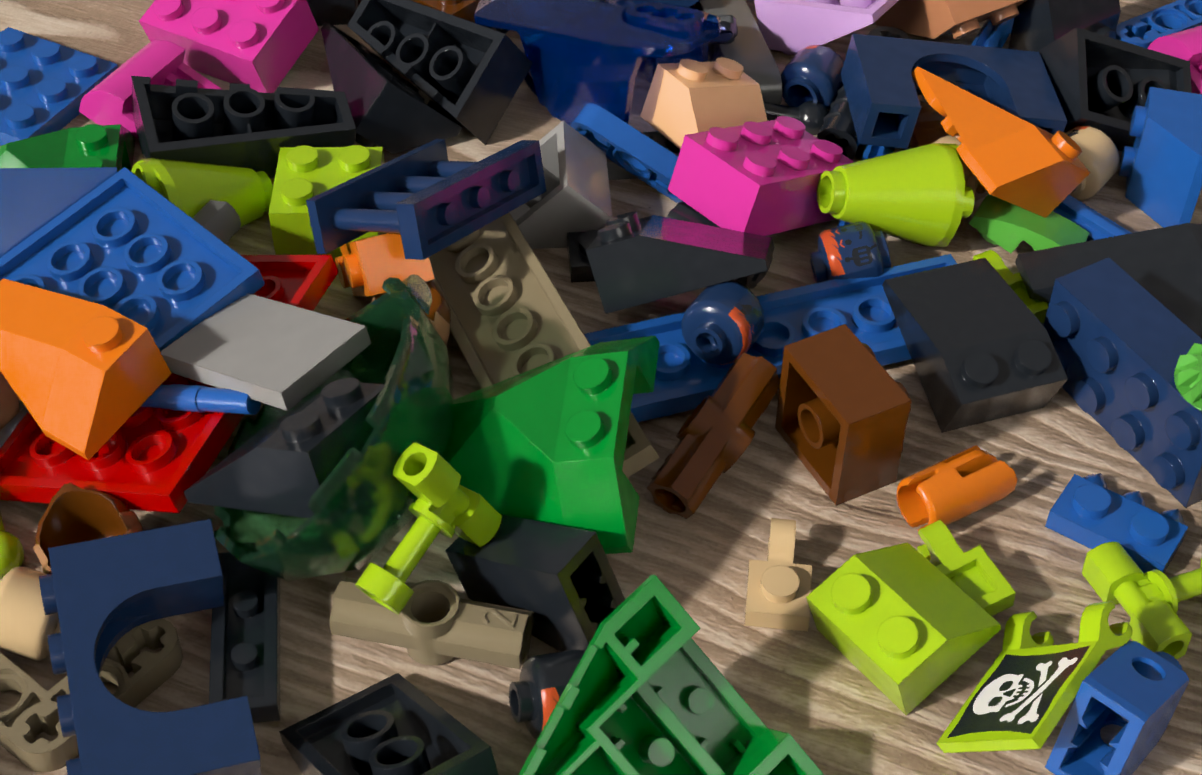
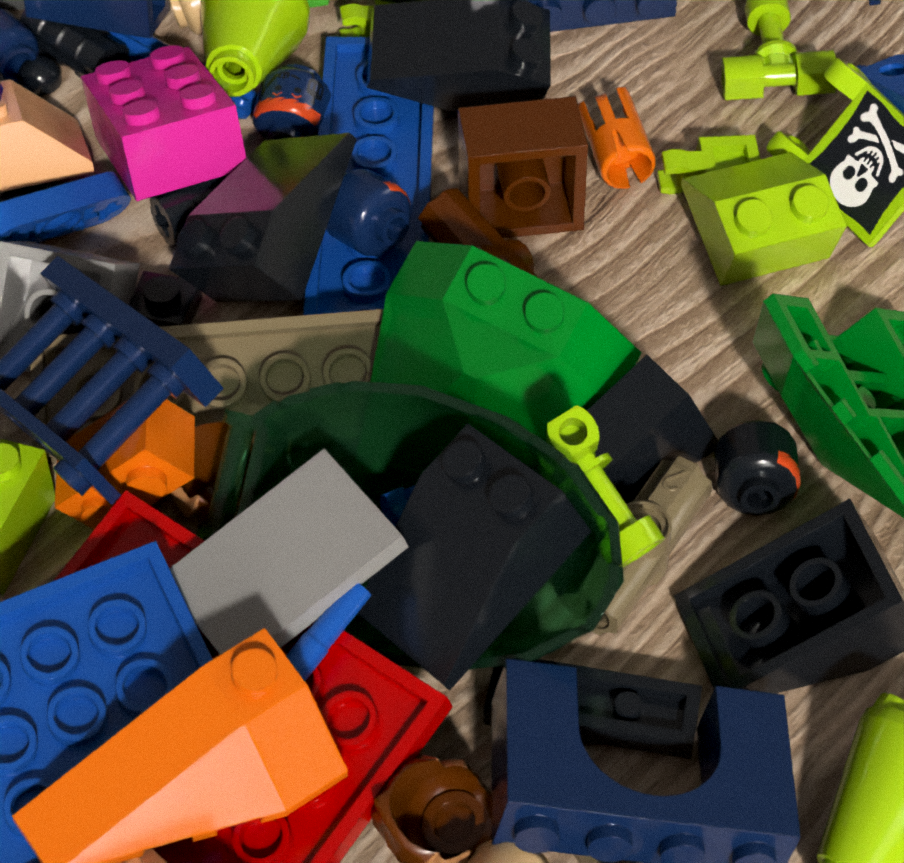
camera: 70 degrees left, 5 degrees up
(778, 585) = (670, 293): tan plate -> none
(1099, 516) = (681, 60): blue plate -> none

